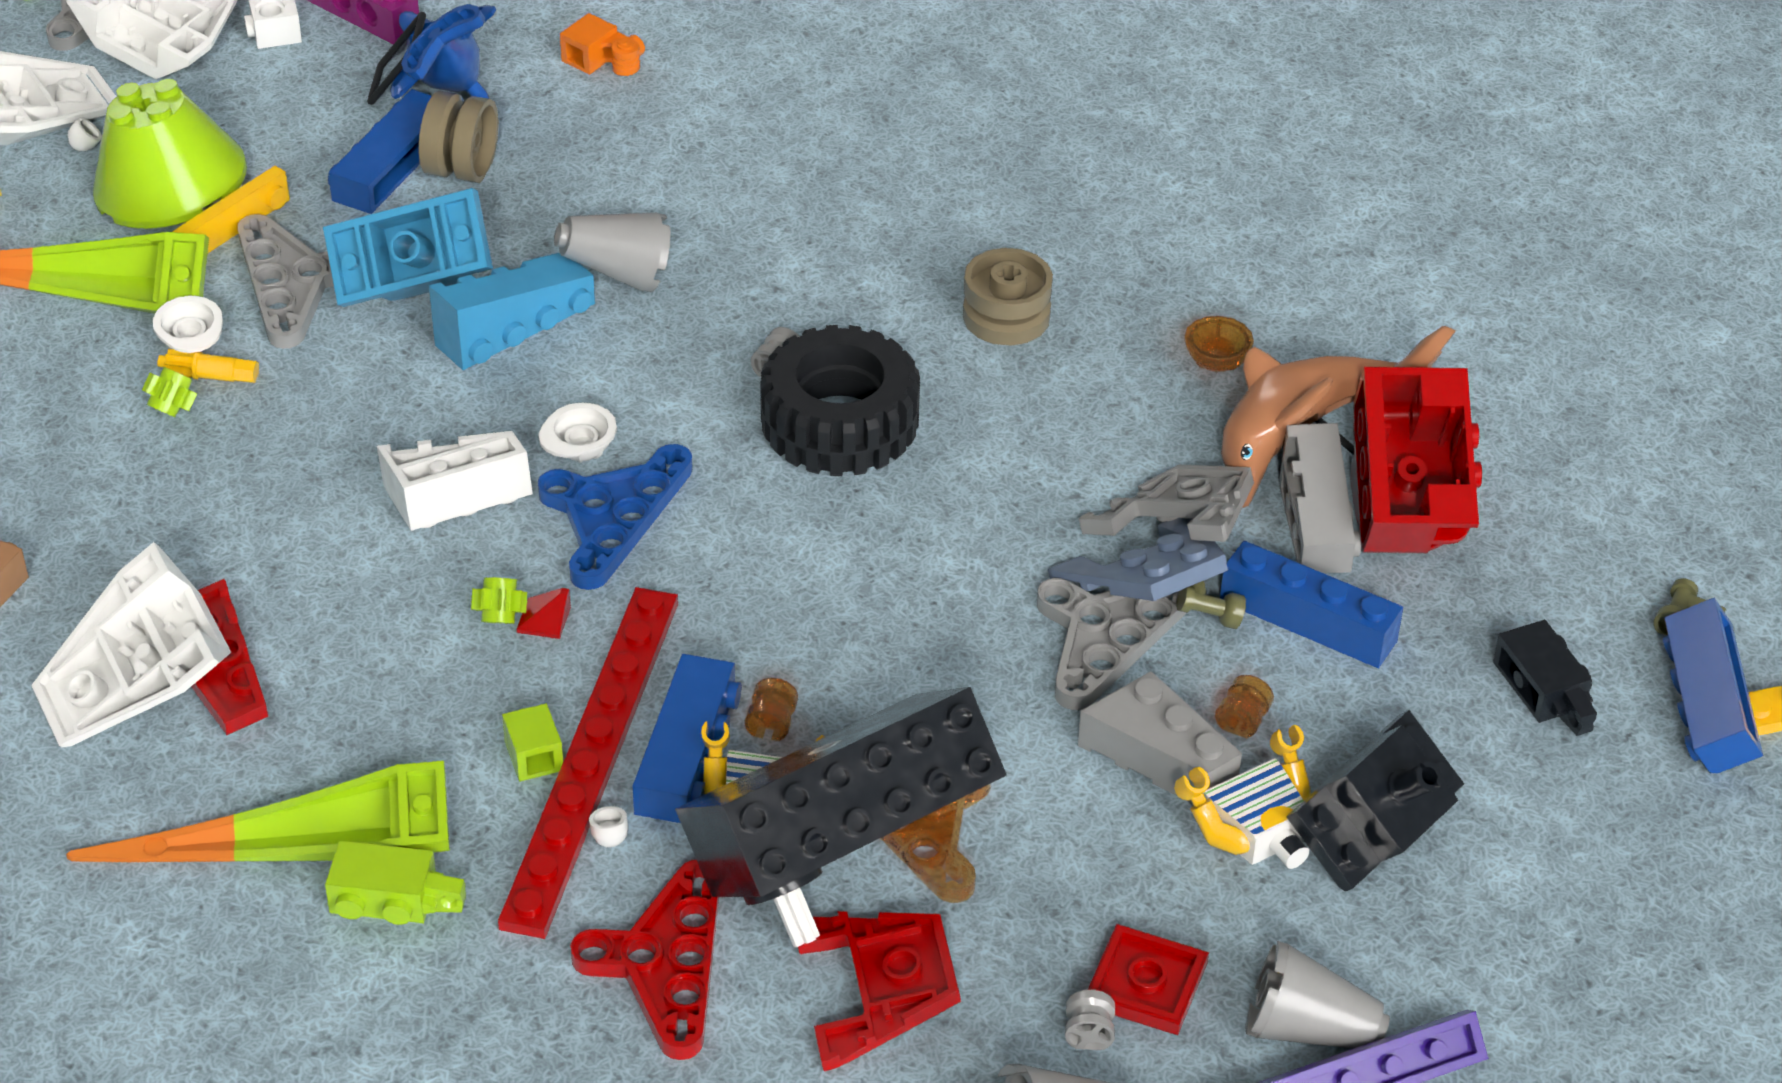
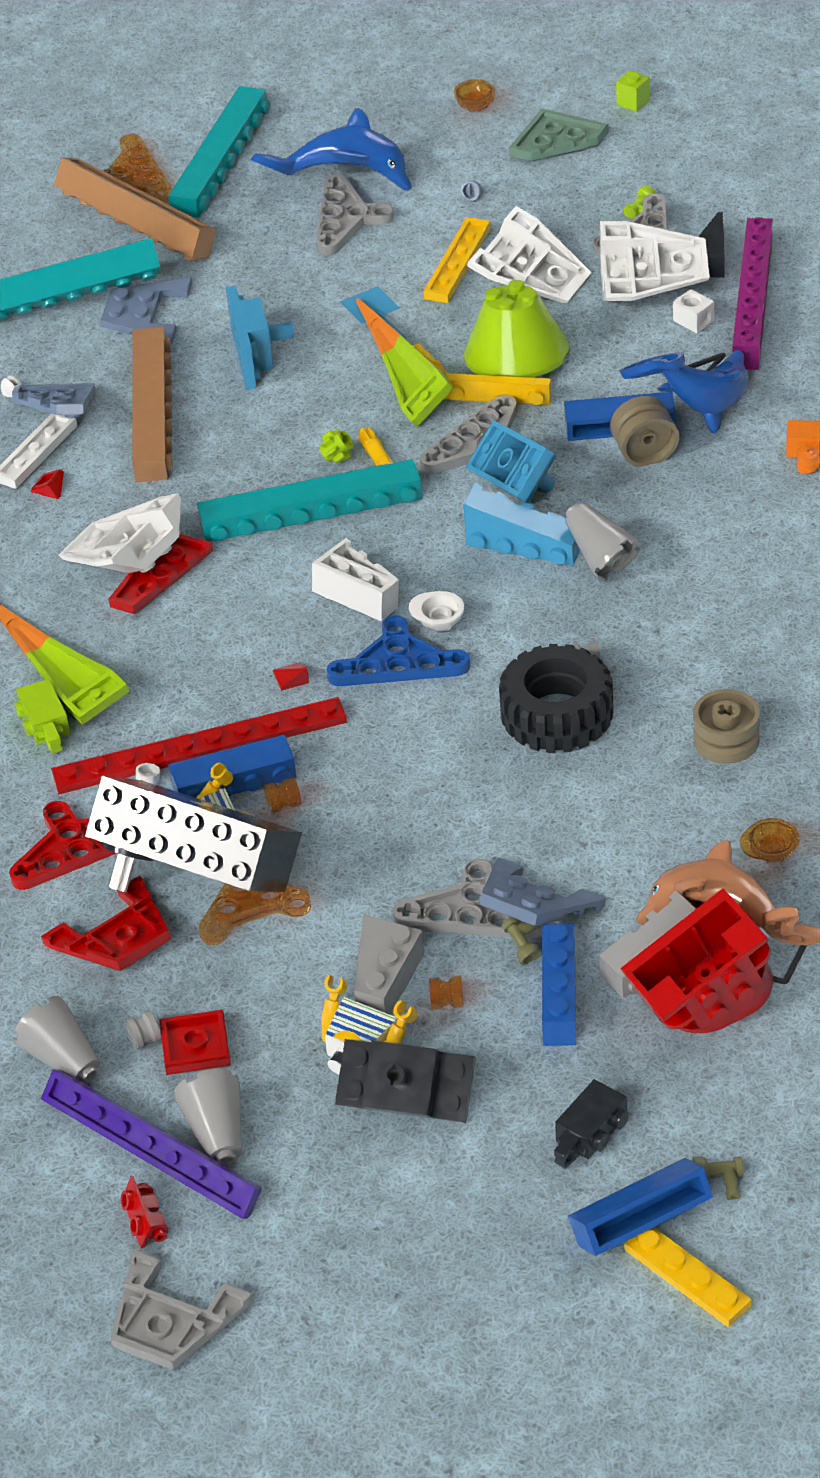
camera: 65 degrees right, 0 degrees up
(188, 323) = (392, 423): white piece -> none
(246, 456) = (309, 500): none -> teal brick
(499, 600) = (278, 648): lime gear -> none
(532, 742) = (183, 714): lime brick -> none
(1204, 493) = (602, 888): light grey wing -> none

